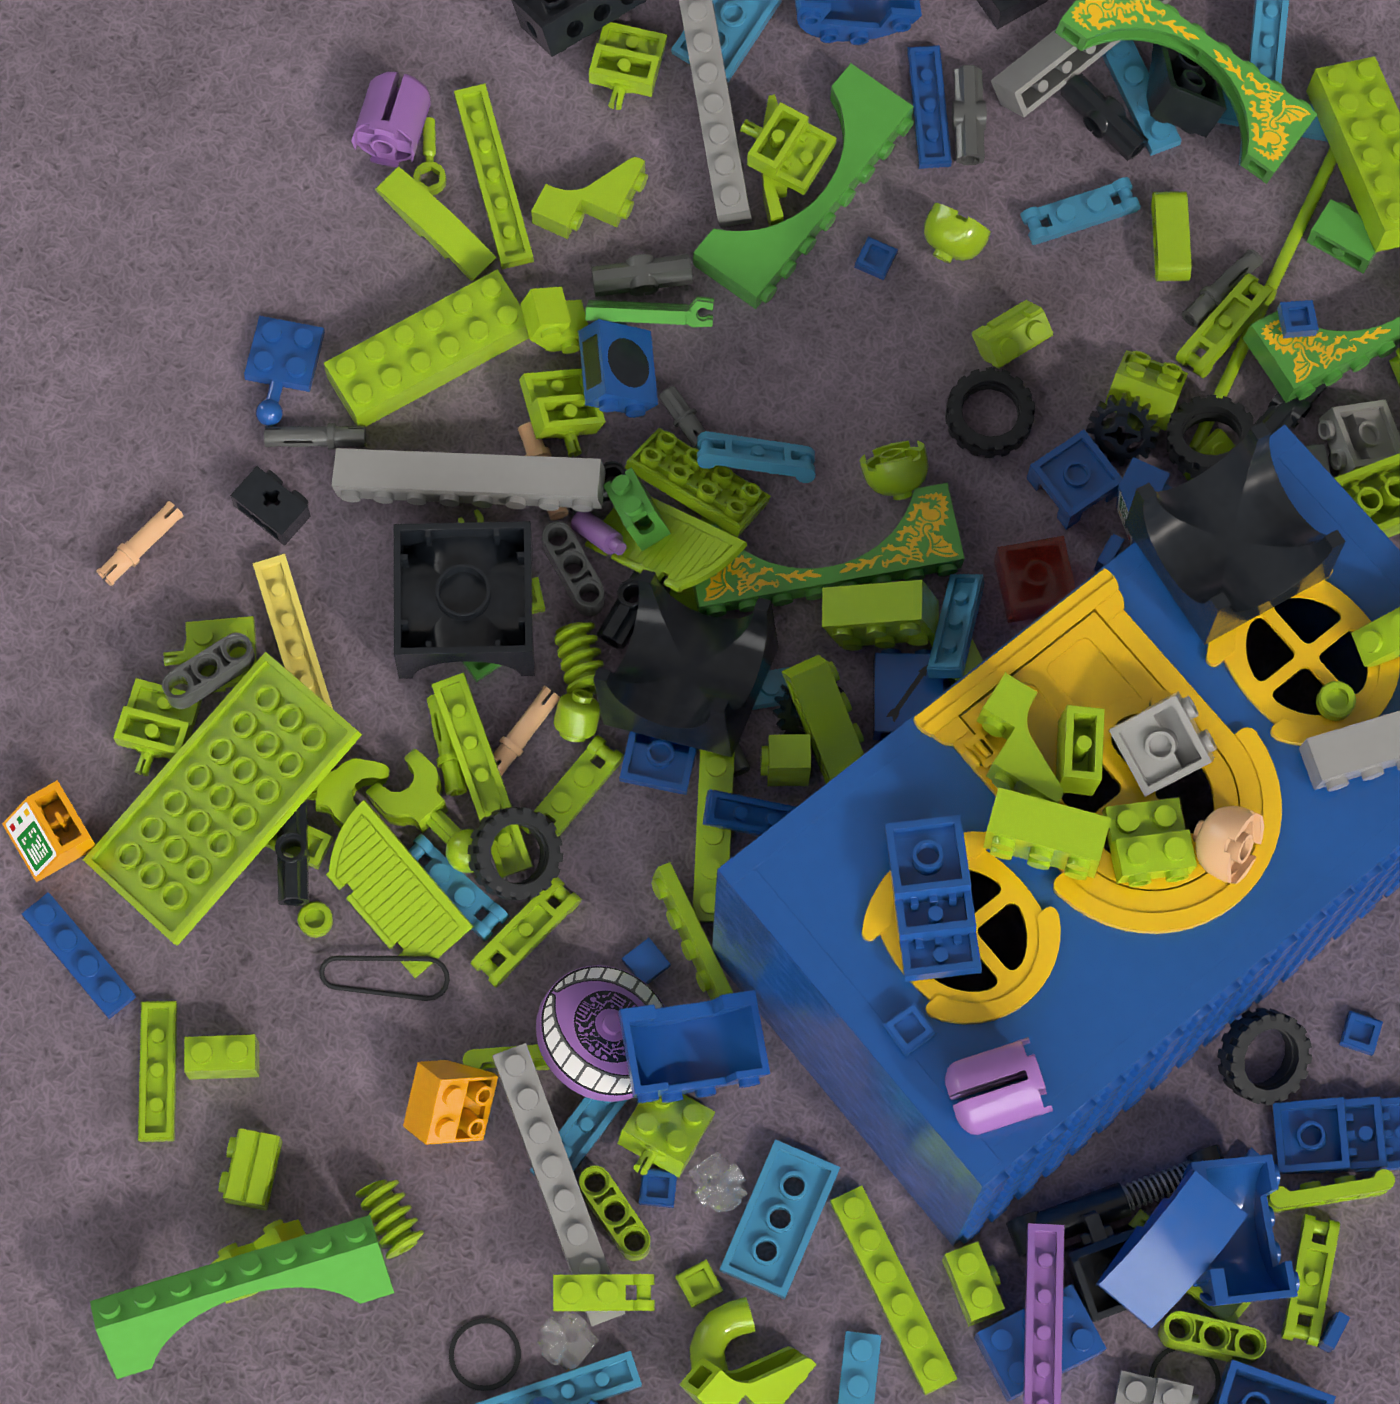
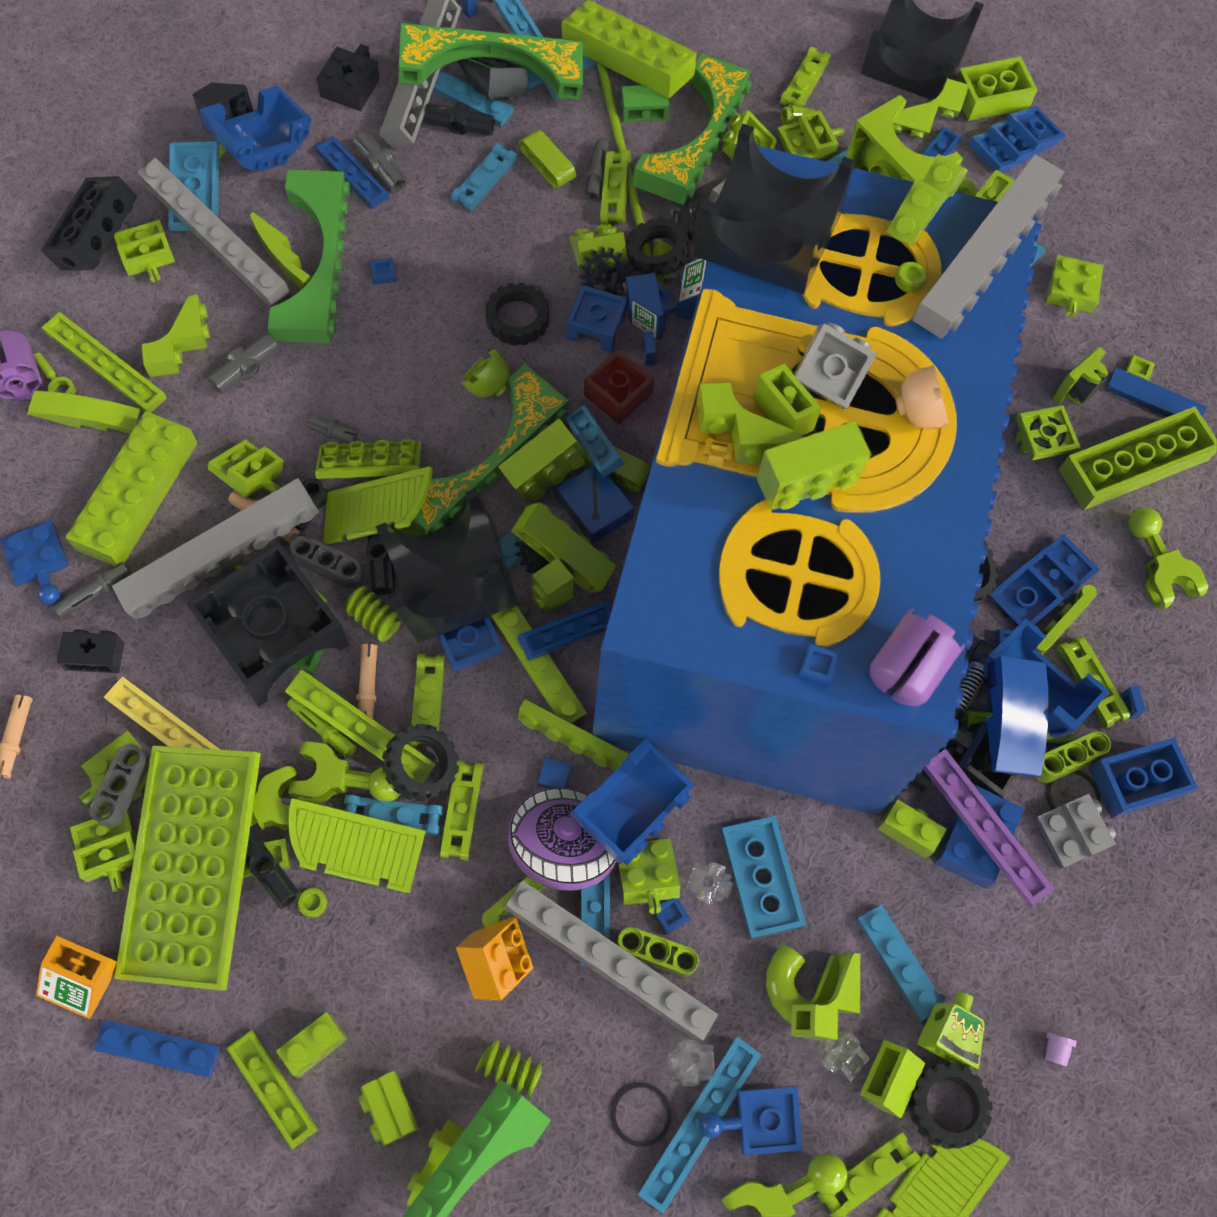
camera: 40 degrees left, 5 degrees down
(380, 992) = (418, 871): black piece -> none
(553, 320) = (205, 417): lime brick -> none
(577, 716) = (396, 649): lime head -> none
(598, 533) = (328, 529): medium lavender cylinder -> none
(602, 1292) = (695, 1012): lime plate -> none
(618, 368) = (268, 422): blue brick -> none
(635, 504) = (338, 496): bright green brick -> none
(651, 312) = (266, 377): bright green tile -> none
(699, 1283) = (744, 958): lime tile -> none
(756, 455) = (393, 421): dark azure plate -> none
(788, 148) = (284, 233): lime plate -> none
(893, 1290) = (865, 870): lime plate -> none
(933, 898) = (766, 564): blue slope -> none
(953, 234) = (421, 227): lime cylinder -> none
(1012, 333) = (497, 261): lime brick -> none
(1149, 842) = (883, 432): lime plate -> none
(1297, 319) = (659, 148): blue plate -> none
(1360, 1033) = (1002, 521): blue tile -> none

